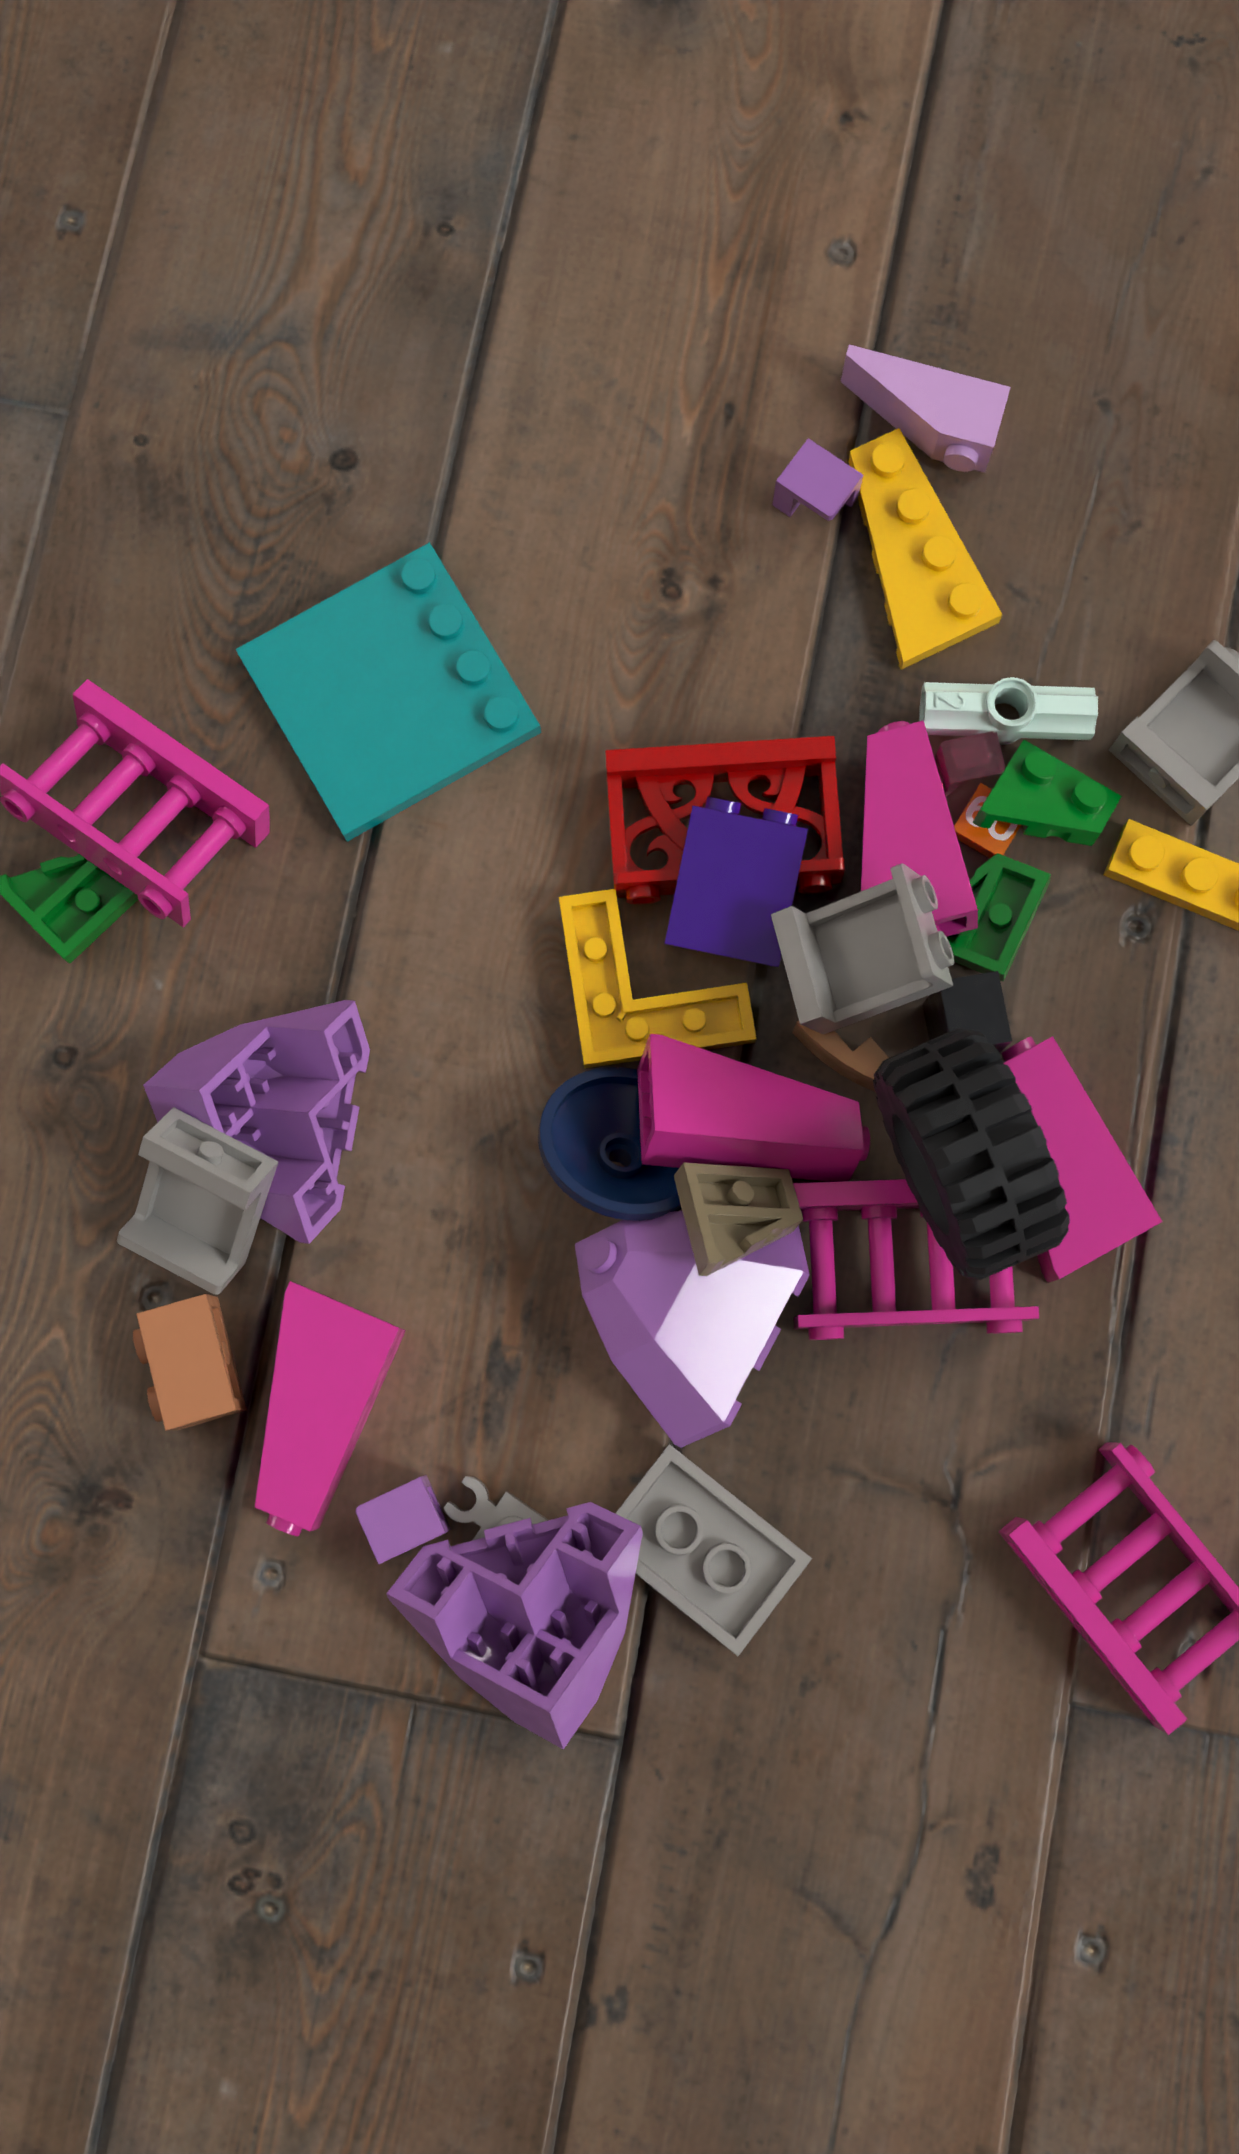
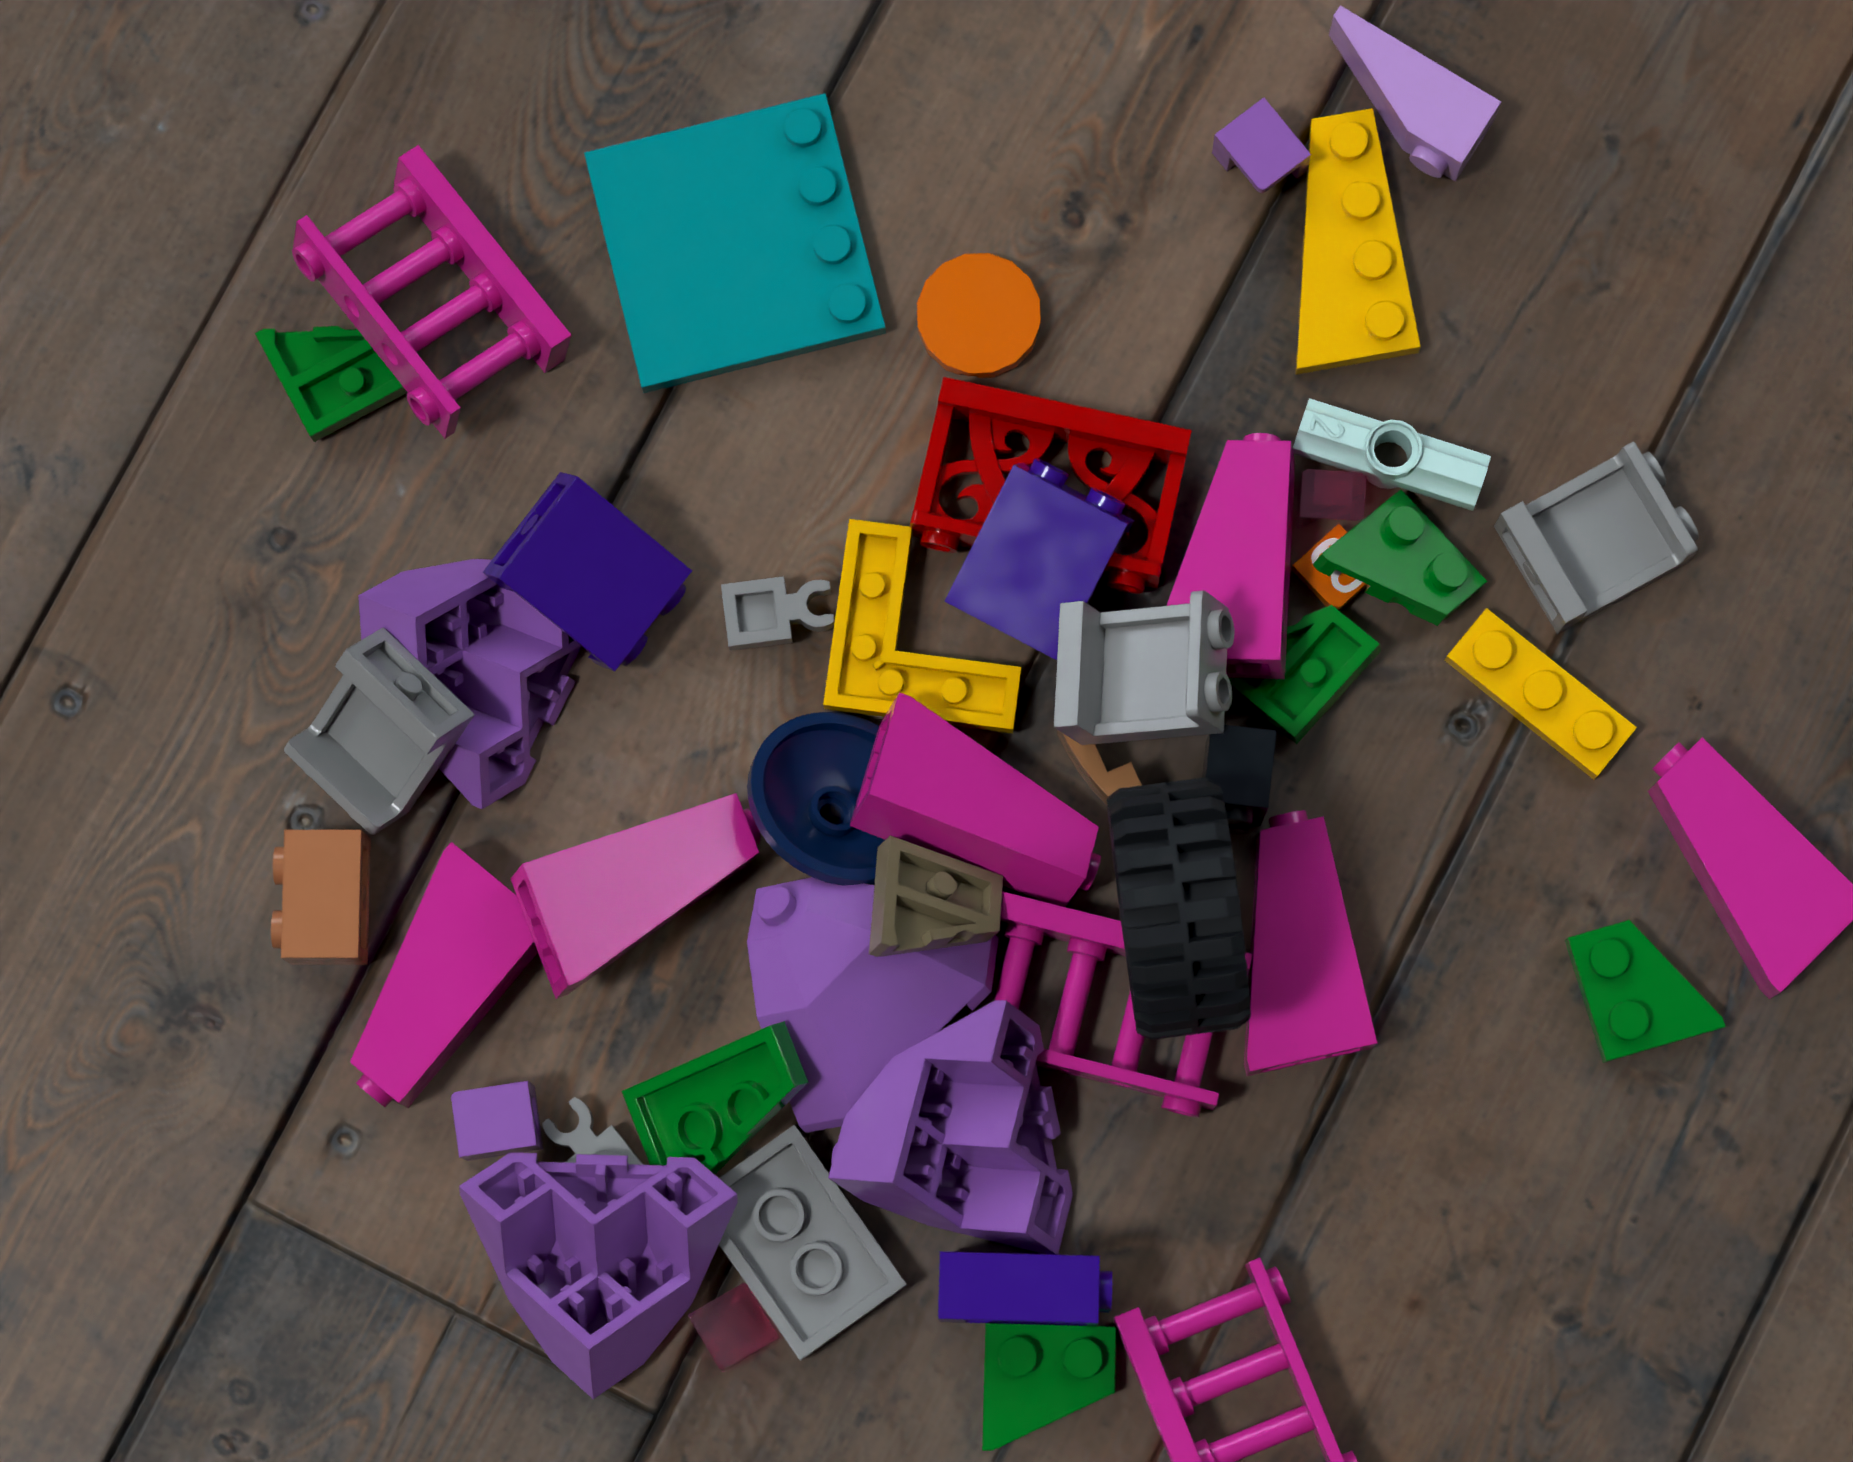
camera: 20 degrees right, 0 degrees up
(344, 1005) = (590, 571): none -> dark purple panel
(451, 1281) = (621, 888): none -> dark pink slope
(507, 1000) = (762, 611): none -> light grey plate
(595, 1443) = (717, 1099): none -> green wing
(617, 693) = (978, 315): none -> orange tile
(667, 1642) = (733, 1327): none -> clear pink slope
(822, 1410) = (962, 1135): none -> medium lavender brick
(921, 1535) = (1022, 1289): none -> dark purple window
(954, 1603) = (1042, 1376): none -> green wing

